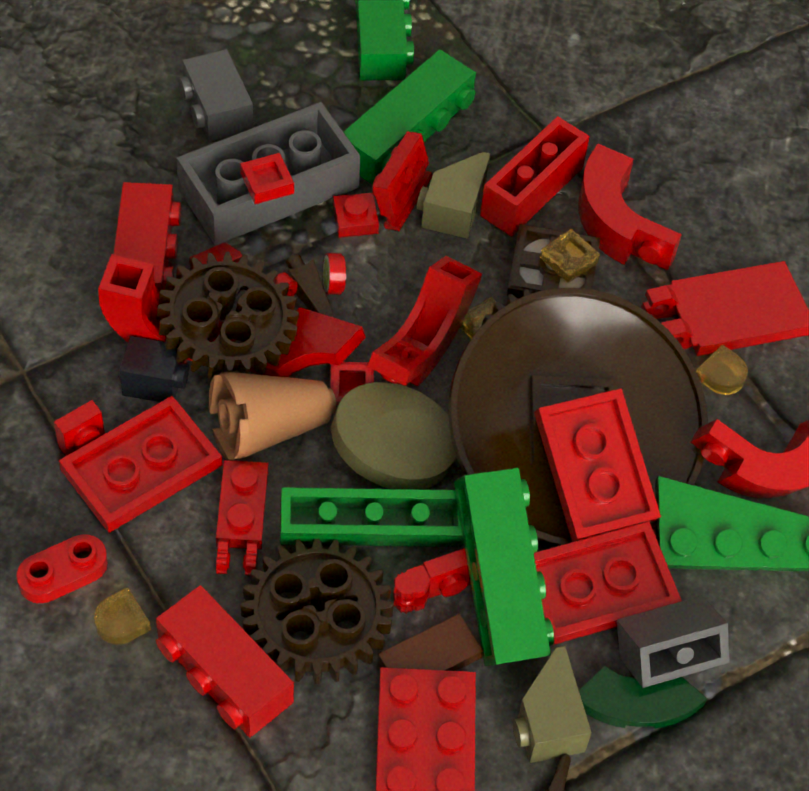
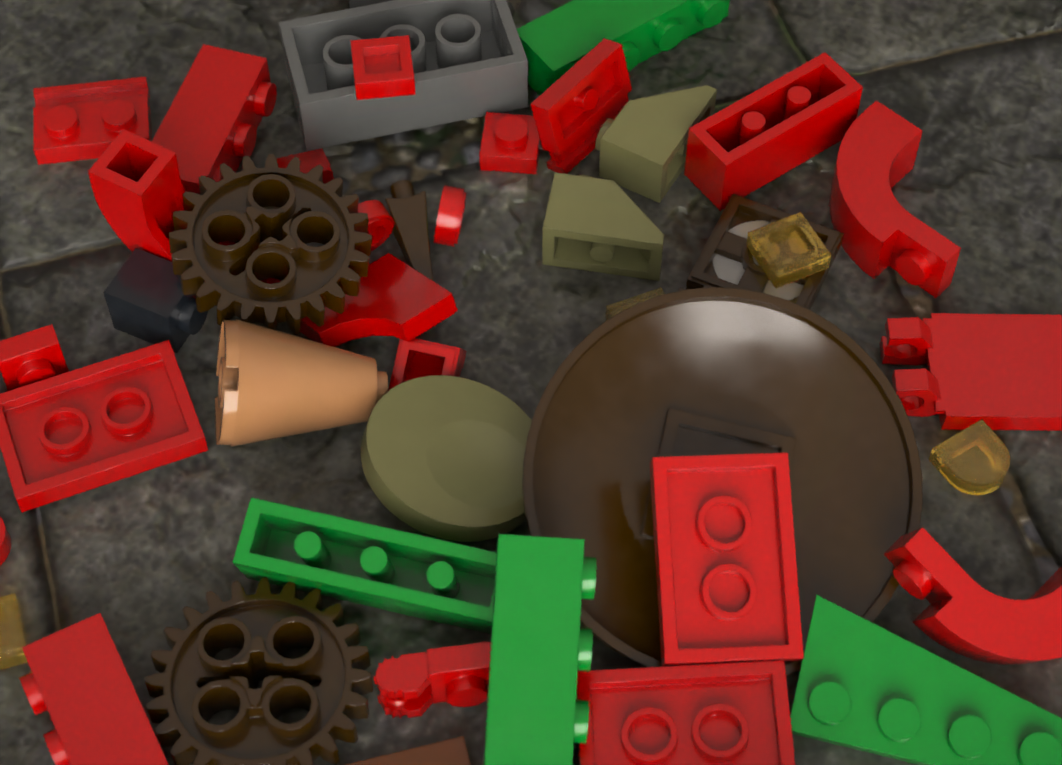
camera: 20 degrees right, 0 degrees up
(52, 251) = (85, 118): none -> red plate
(241, 512) = (207, 525): red hinge -> none
(425, 247) = (599, 229): none -> olive slope
(430, 325) = (561, 309): red arch -> none

